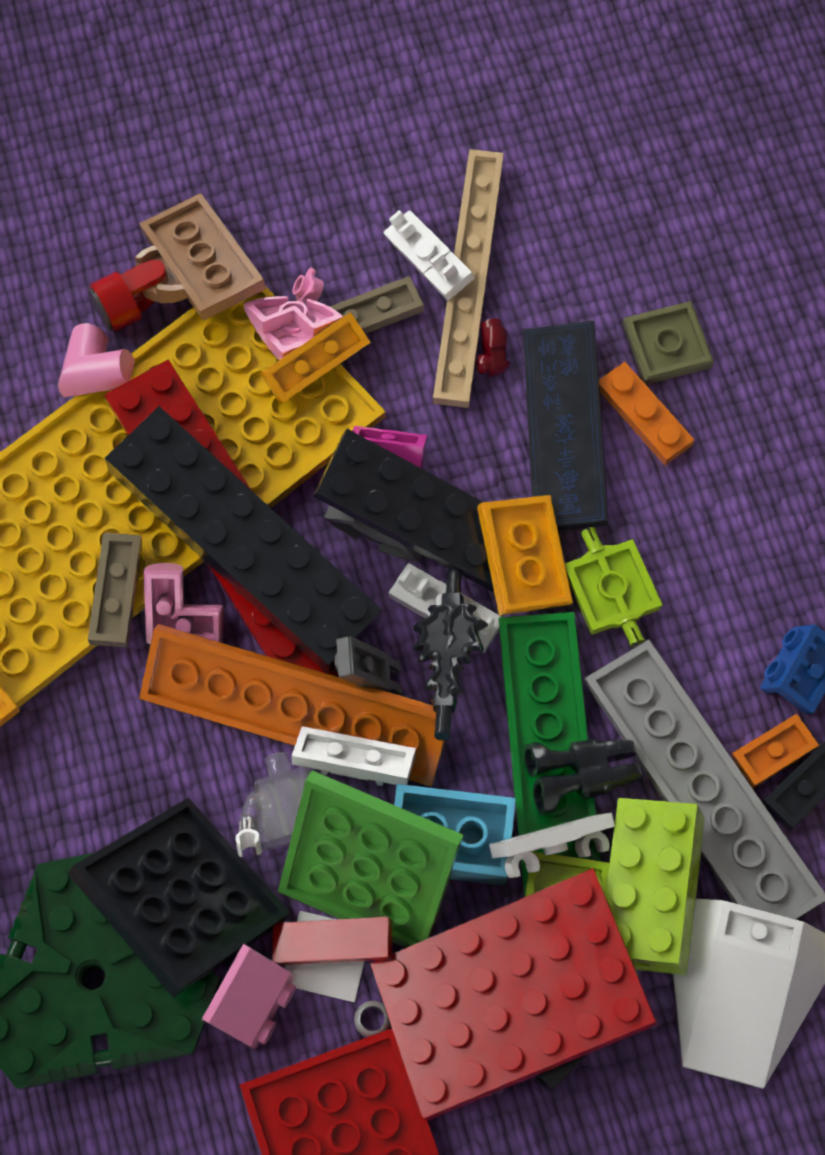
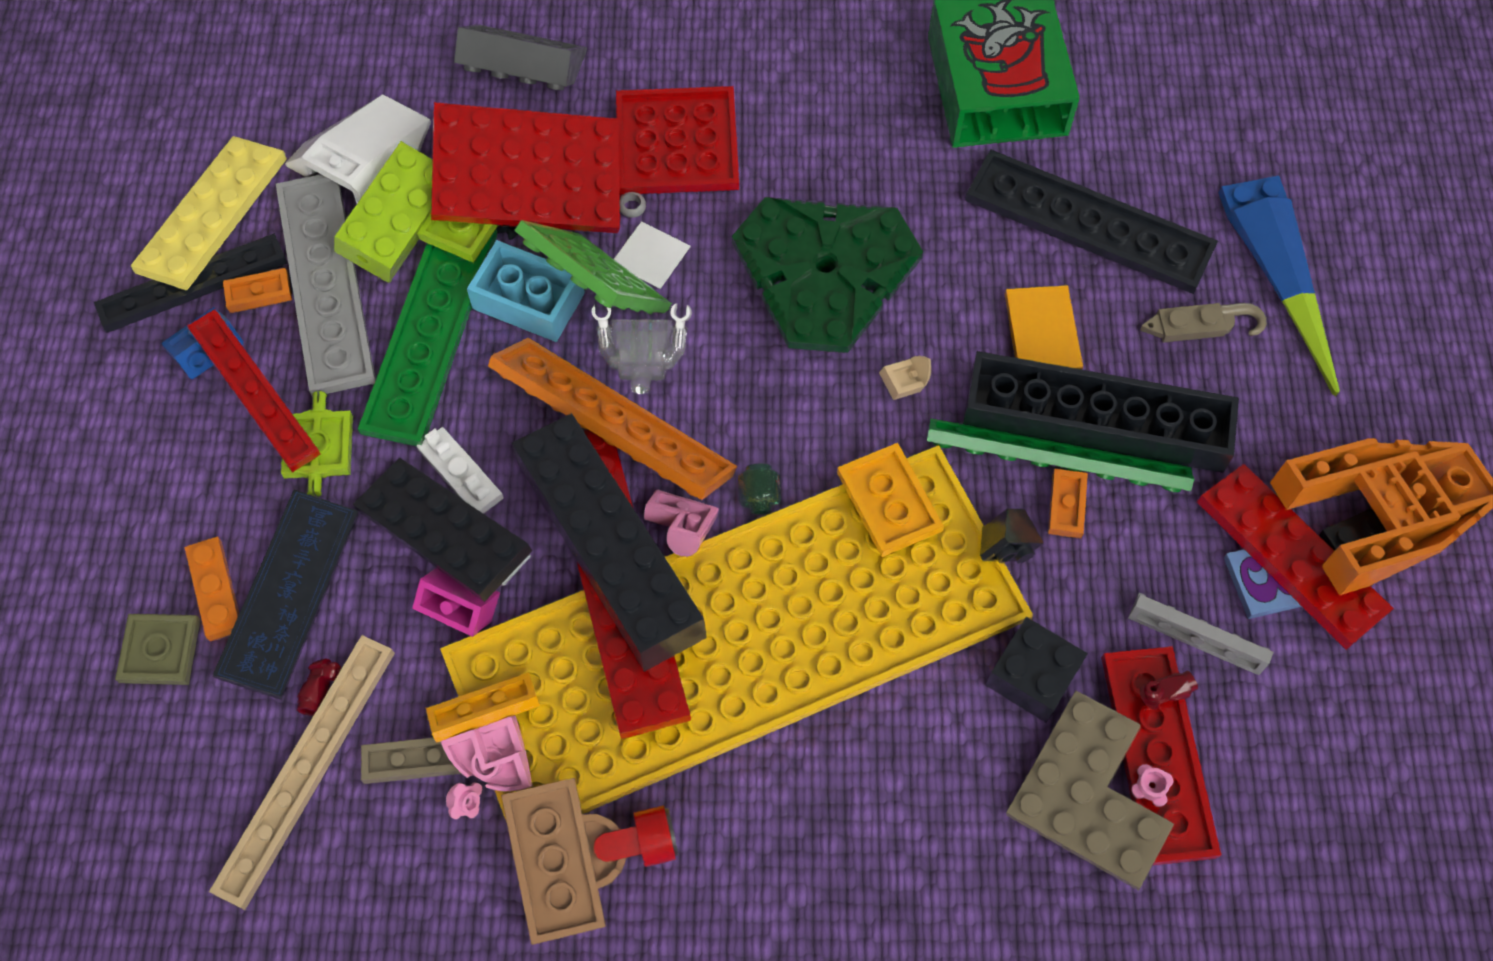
camera: 165 degrees left, 5 degrees down
(89, 366) = (703, 770): bright pink brick -> none
(105, 674) = (759, 488): none -> clear green head
(115, 590) = (730, 545): dark tan plate -> none
(179, 895) = (744, 294): black plate -> none
(250, 998) = (711, 230): bright pink slope -> none
(332, 941) = (642, 250): tile -> none
(353, 756) = (578, 359): white plate -> none
(366, 665) = (543, 410): dark grey hinge -> none
(428, 254) = (333, 798): white plate -> none
(448, 639) = (468, 420): black piece -> none
(524, 554) = (375, 480): light orange tile -> none
(553, 841) = (451, 252): white plate -> none
(590, 764) = (401, 302): black piece -> none
(707, 612) = (254, 390): none -> red tile

